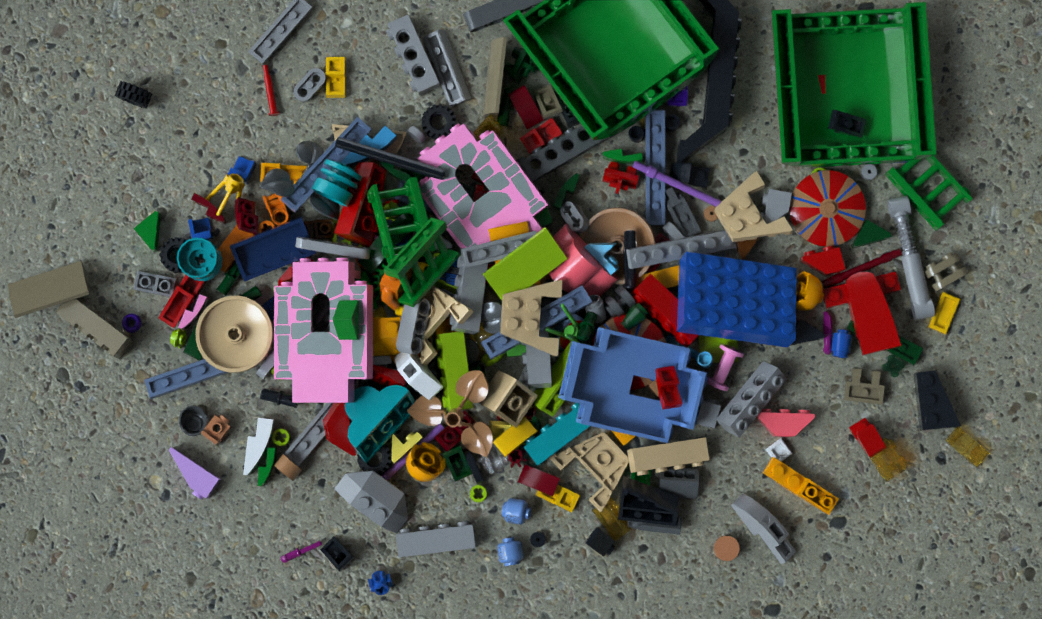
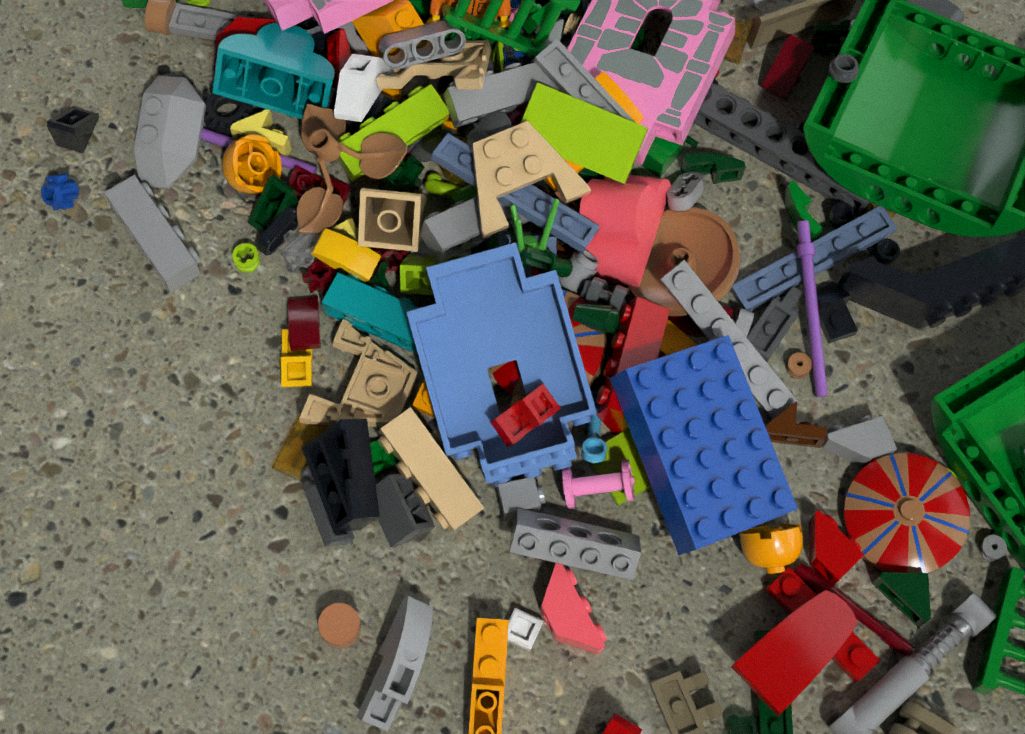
camera: 60 degrees right, 15 degrees down
(297, 553) = (55, 81): magenta piece -> none
(505, 108) = (764, 50): dark green axle -> none
(510, 552) = (184, 334): medium blue head -> none
(516, 511) = (245, 311): medium blue head -> none
(537, 543) = (219, 369): black piece -> none
(541, 135) = (761, 99): red slope -> none
(547, 101) = (805, 91): dark tan slope -> none
(566, 89) = (844, 68): none -> dark grey plate
(599, 252) = (657, 240): medium azure slope -> none
(600, 542) = (256, 439): black slope -> none
(620, 179) = (771, 226): red hips -> none
(630, 274) = (656, 289): black axle -> none
(679, 99) = (925, 242): dark purple plate -> none
(742, 217) = (820, 400): tan wing -> none
(806, 333) = (710, 572): black slope -> none
(827, 330) = (734, 608): magenta piece -> none
(841, 343) = (729, 635): blue brick -> none

